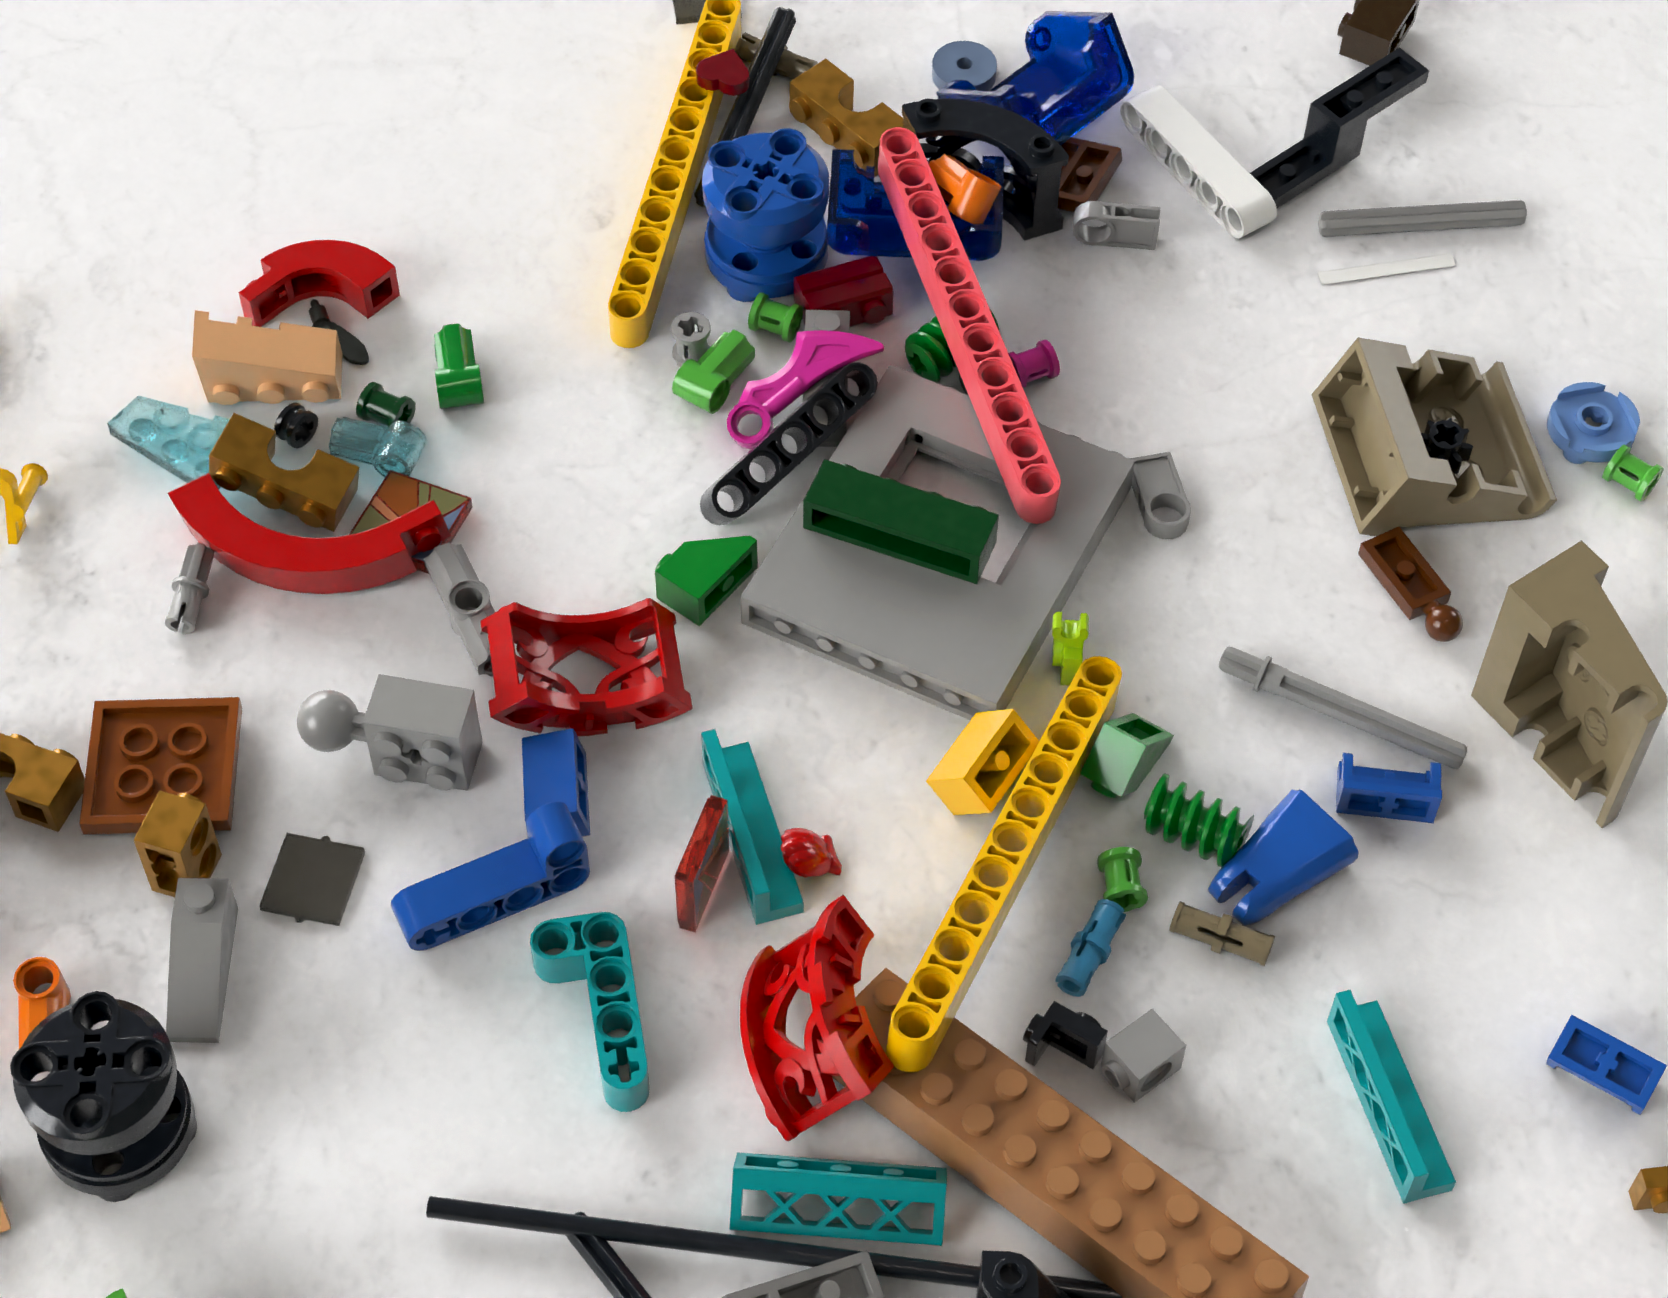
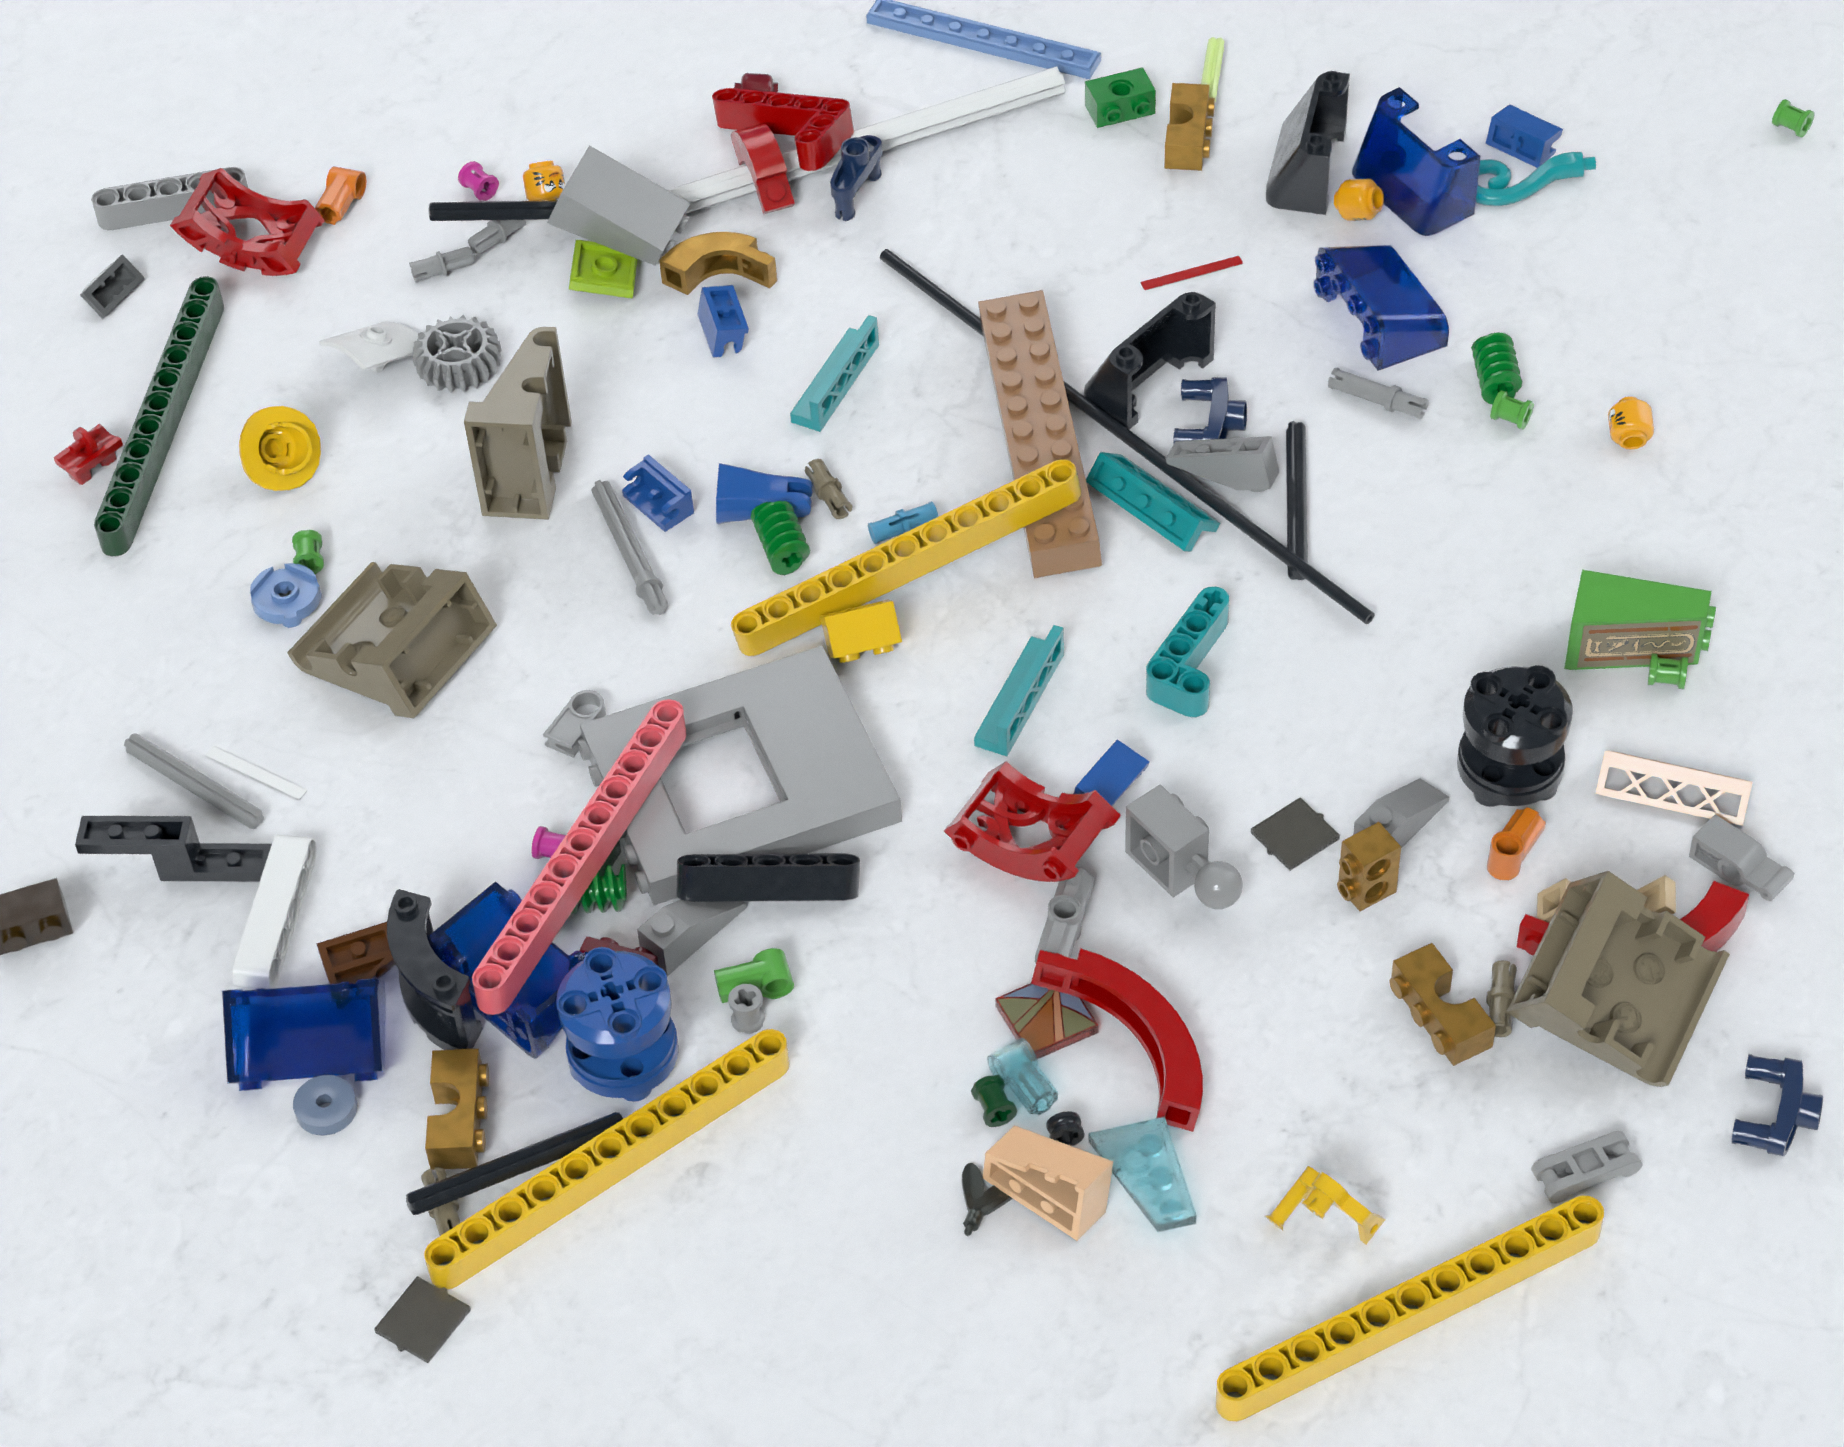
camera: 135 degrees left, 5 degrees down
(161, 747) = (1336, 949): dark orange plate -> none
(190, 588) = (1232, 1056): light grey axle -> none
(313, 493) = (1122, 1094): pearl gold arch -> none
(318, 270) = (949, 1249): red arch -> none
(457, 373) = (923, 1091): green piece -> none
(496, 884) = (1194, 747): blue beam -> none
(702, 863) = (1073, 667): clear red tile -> none
(704, 574) = (899, 845): green slope -> none
(723, 73) = (513, 1176): dark red tile -> none
(775, 317) = (681, 997): bright green bush -> none
(809, 853) = (1002, 657): red animal -> none
(813, 358) = (698, 911): dark pink piece -> none
(836, 1036) = (1131, 542): red fence -> none
(900, 521) = (766, 762): dark green brick -> none
(965, 190) = (484, 922): orange piece -> none
(1068, 645) = (741, 653): lime plate -> none
(1068, 1032) = (958, 486): black bracket -> none
(1122, 877) = (850, 539): bright green bush -> none
(1124, 754) = (772, 579): green slope -> none
(1125, 225) = (375, 891): light grey piece -> none
(1142, 1056) = (936, 458): light grey brick -> none
(1412, 582) = (508, 577): reddish brown plate -> none
(1447, 442) = (396, 608): black gear -> none

